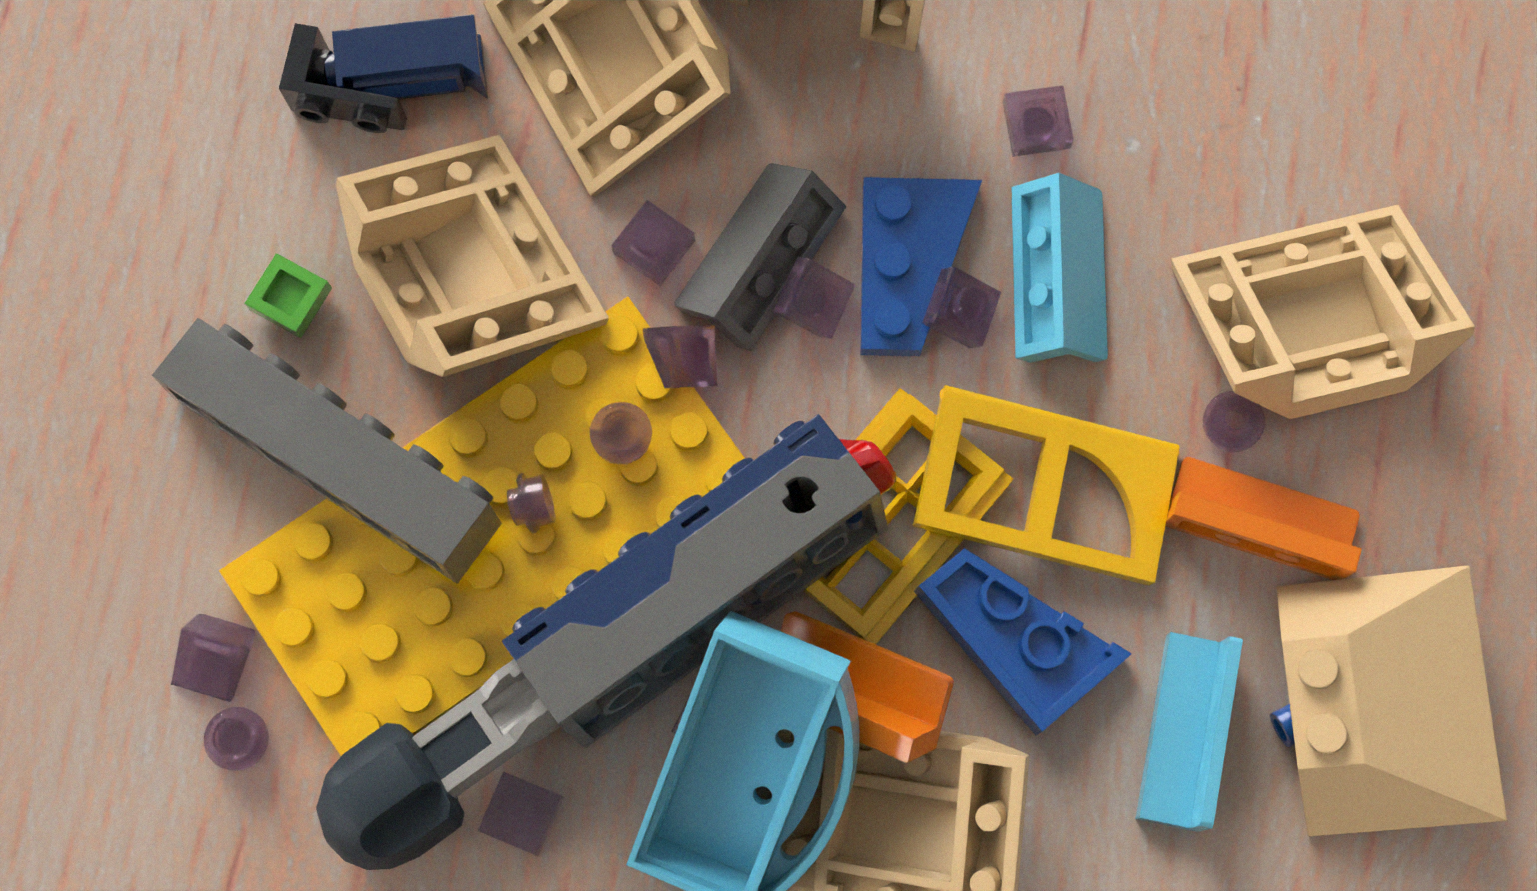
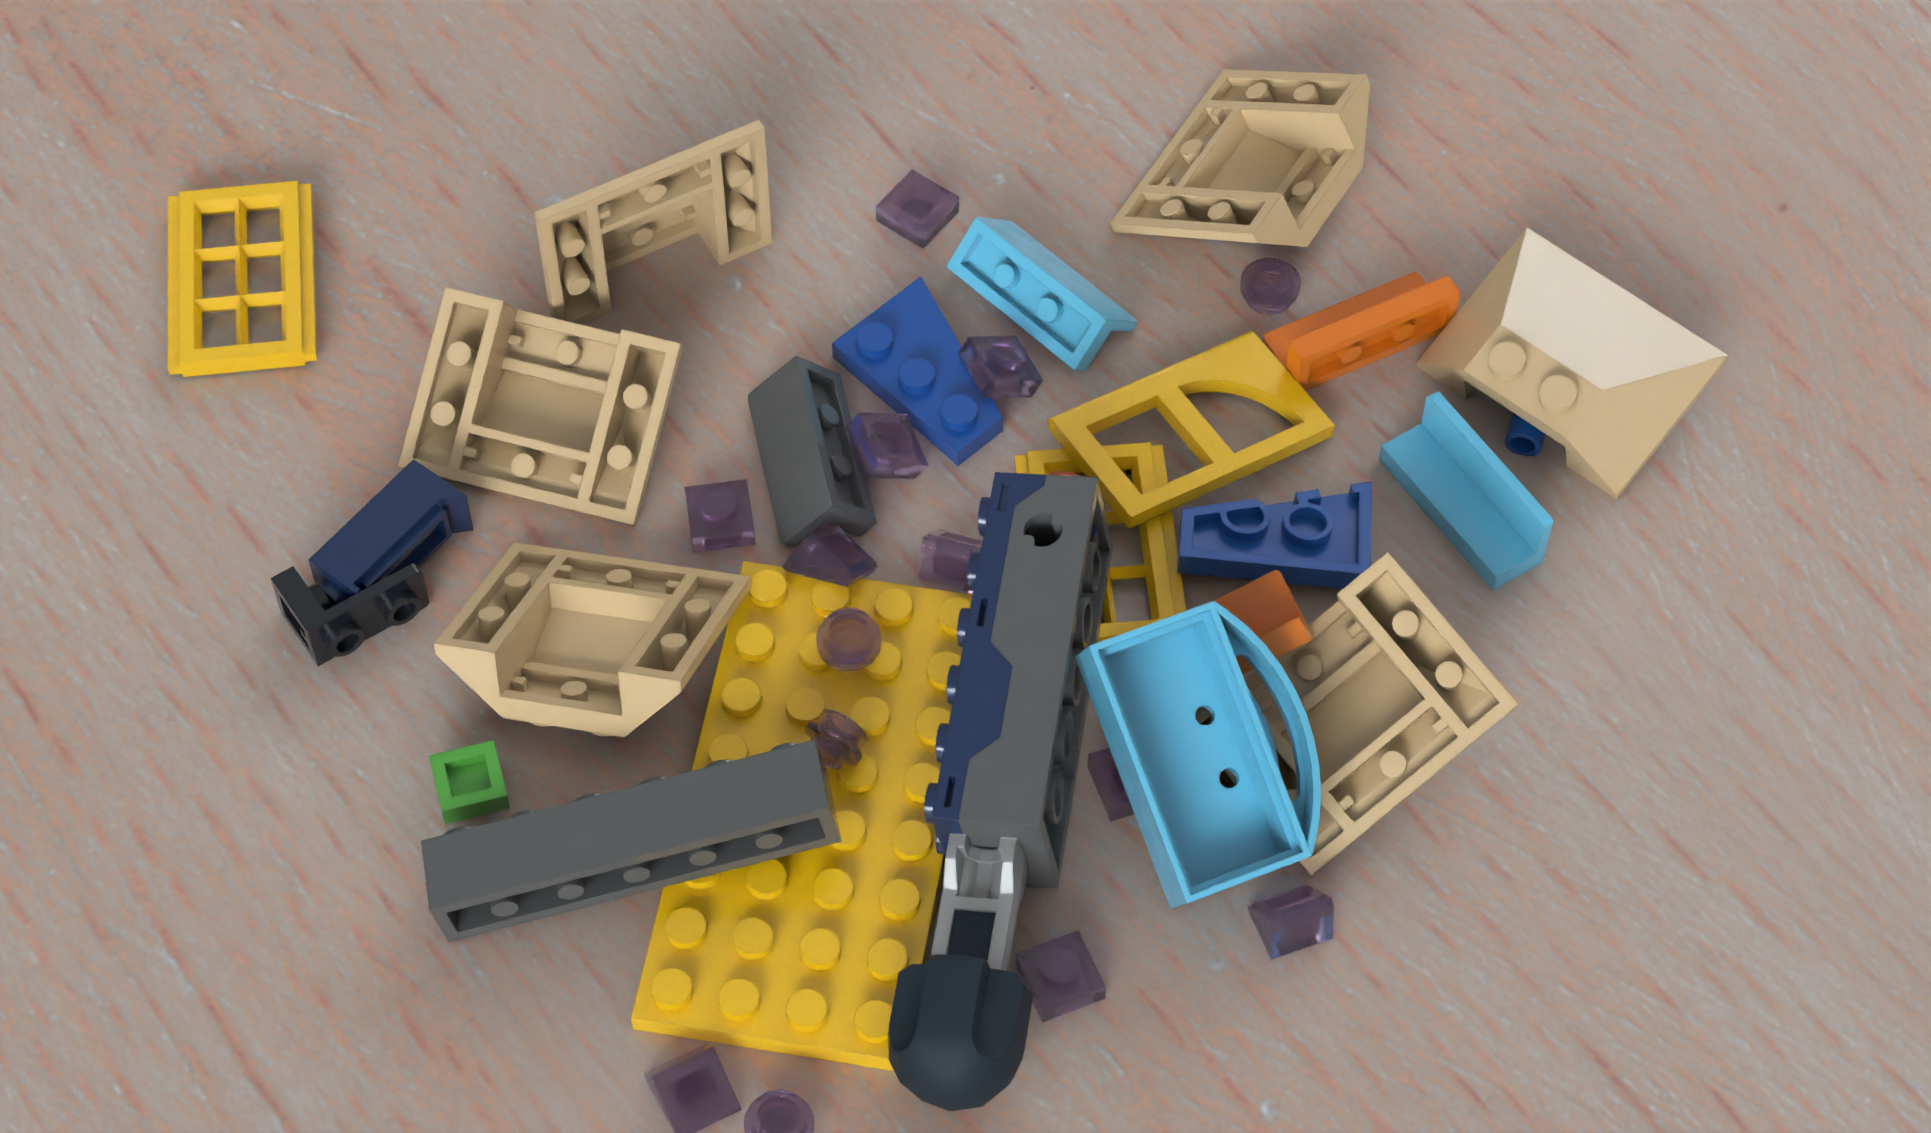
camera: 45 degrees left, 20 degrees down
(770, 416) = (946, 558): none -> clear purple slope

